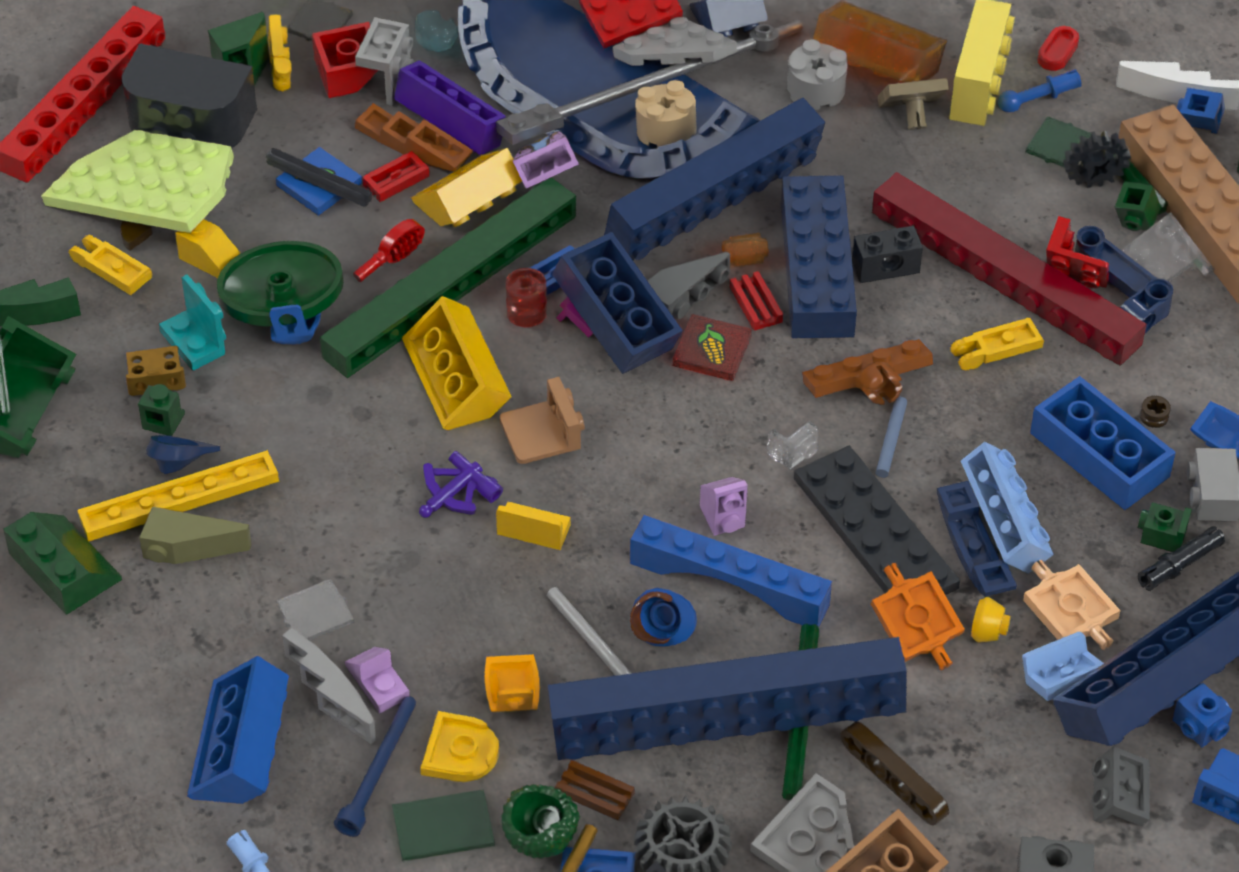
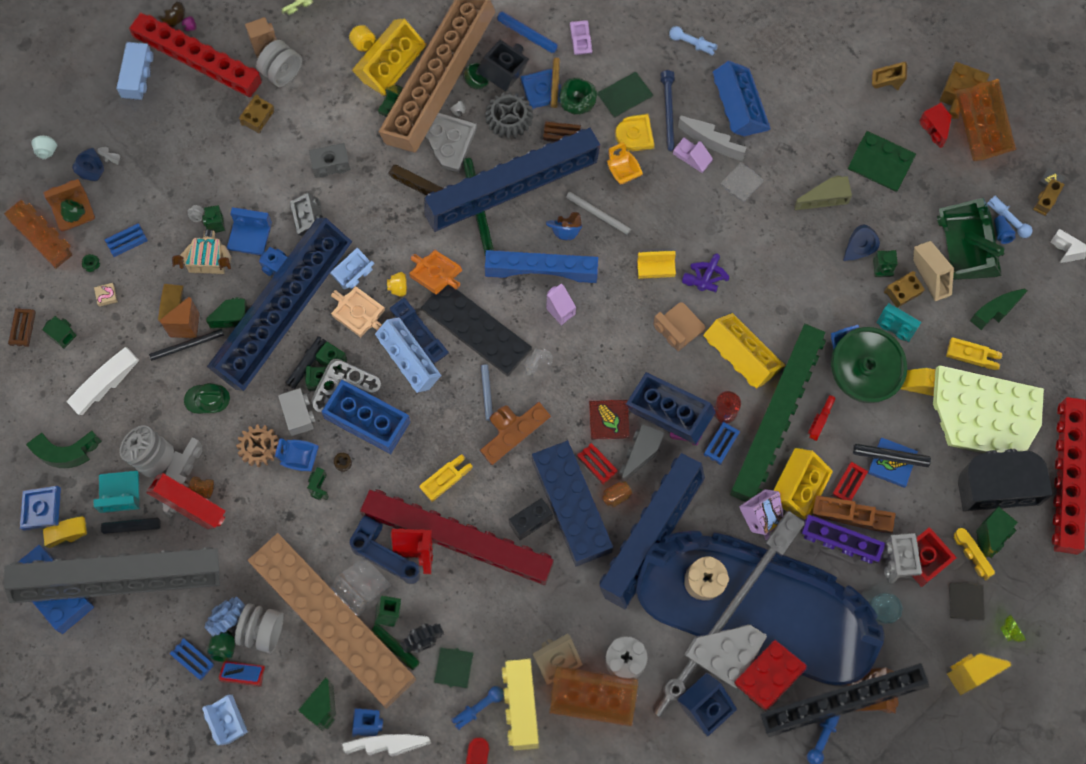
camera: 160 degrees right, 20 degrees up
(91, 376) = (934, 270): none -> tan slope
(178, 495) = (845, 218): yellow plate -> none
(1127, 501) = (330, 375): none -> light grey beam
(1135, 547) = (328, 353): none -> dark green brick
(1205, 387) = (316, 481): none -> dark green bracket

